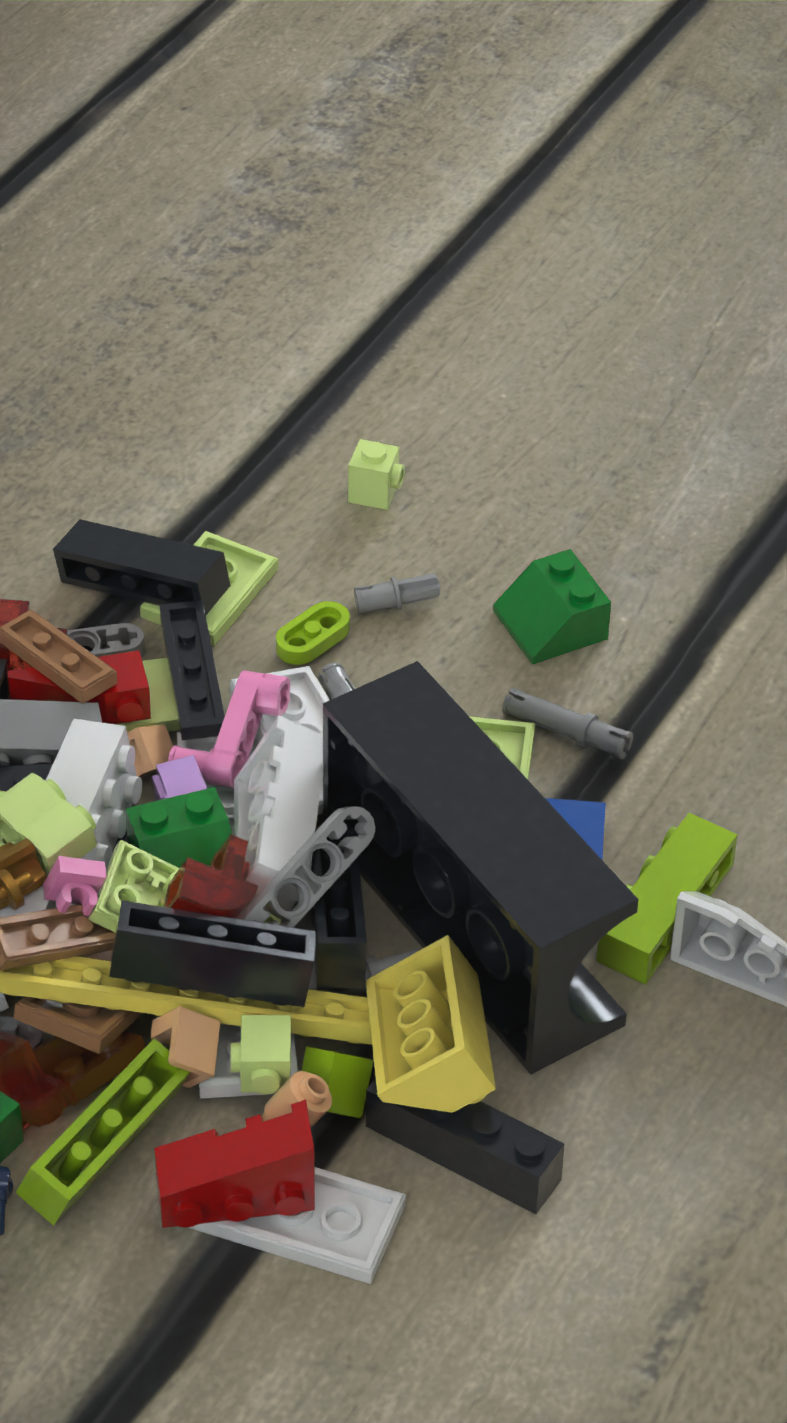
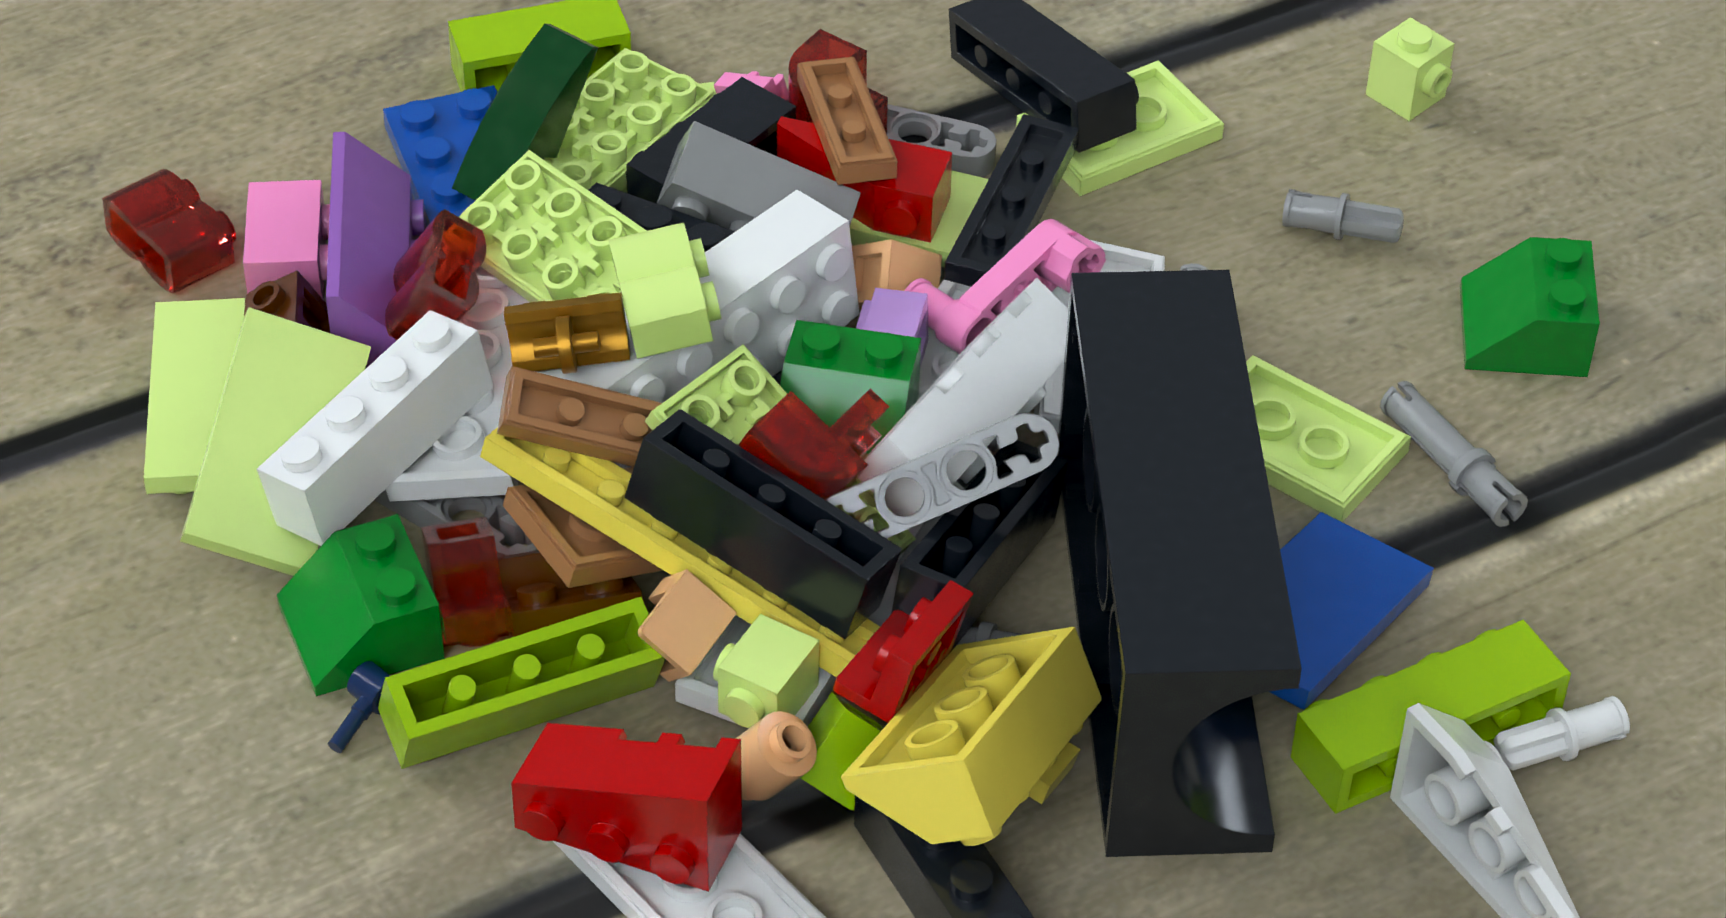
camera: 30 degrees right, 0 degrees up
(74, 882) = (651, 369): bright pink tile -> none
(312, 632) = (1203, 223): lime plate -> none
(352, 1000) = (904, 653): none -> red bracket
(748, 872) = (1563, 733): none -> white axle

